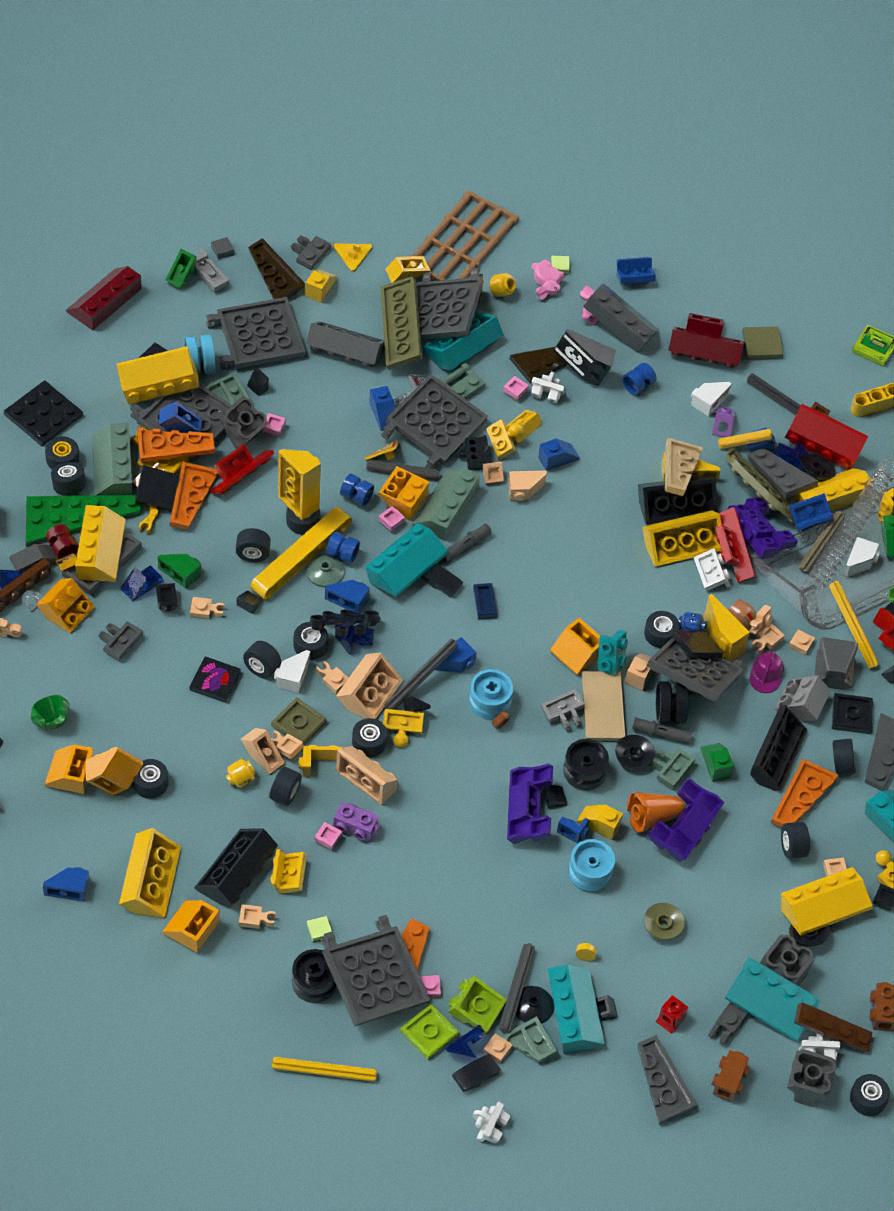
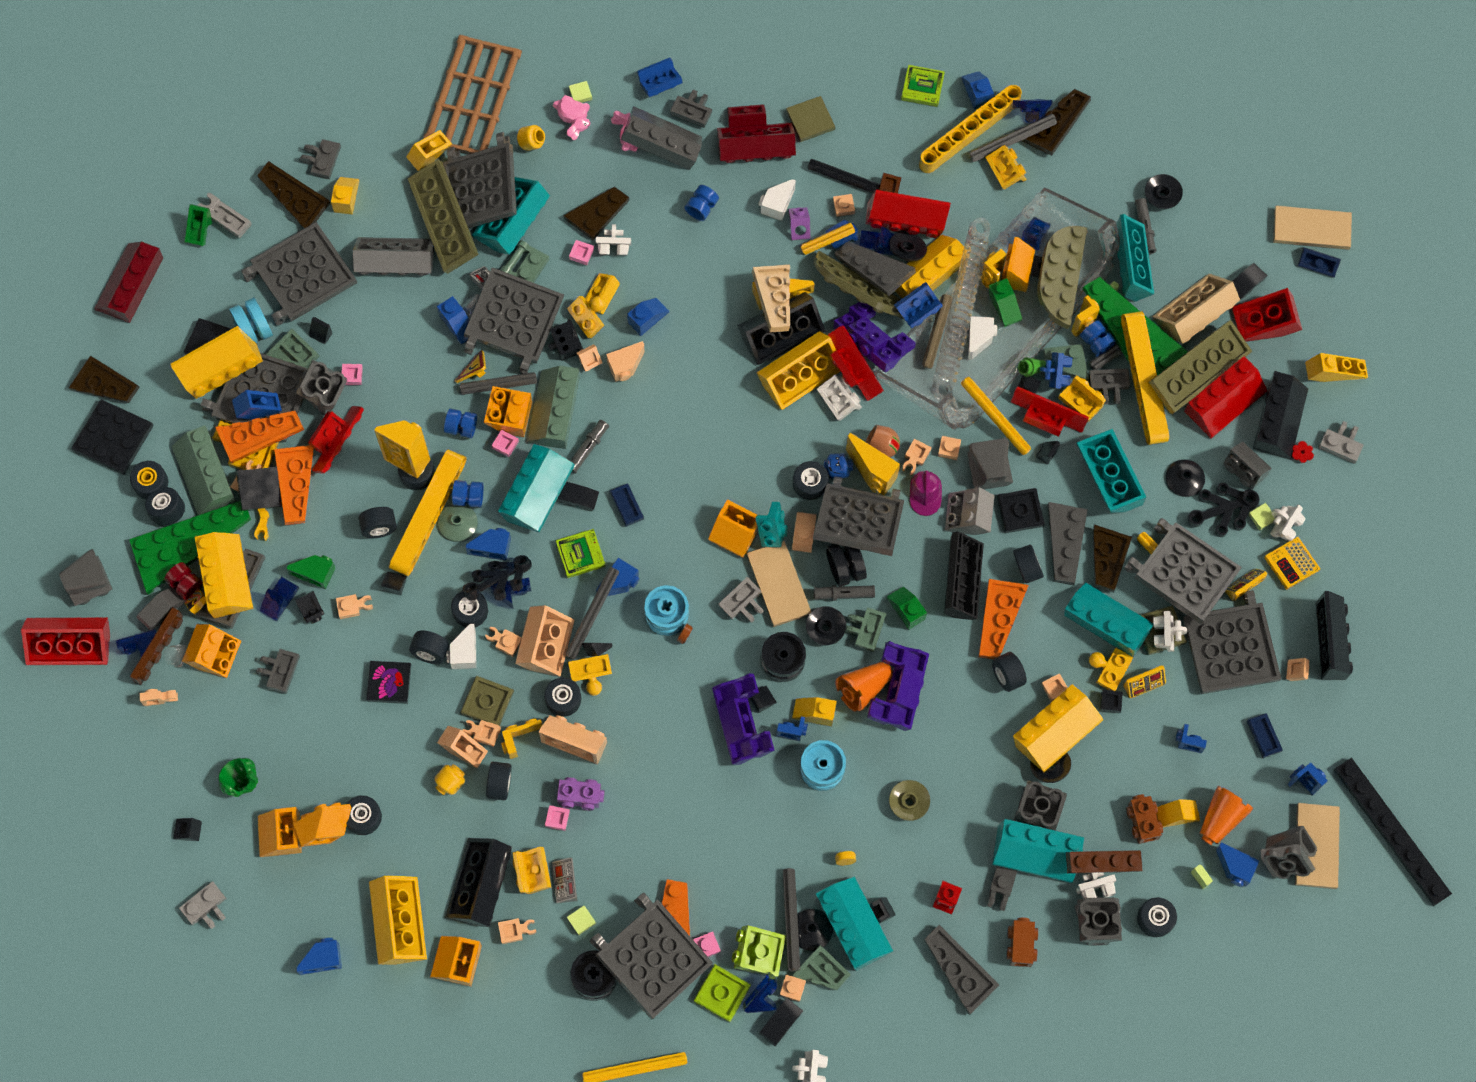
camera: 15 degrees left, 15 degrees up
(52, 367) = (103, 381): none -> dark brown wing
(222, 247) = (230, 183): dark grey tile -> none
(316, 890) = (564, 880): none -> slope
(352, 253) = (365, 146): yellow piece -> none
(428, 627) = (580, 553): none -> lime tile
(585, 356) = (642, 198): black slope -> none
(655, 305) = (692, 111): none -> dark grey hinge
(697, 644) = (852, 489): black tile -> none
(762, 619) = (906, 437): light nougat plate -> none
(769, 419) = (844, 205): none -> light nougat plate

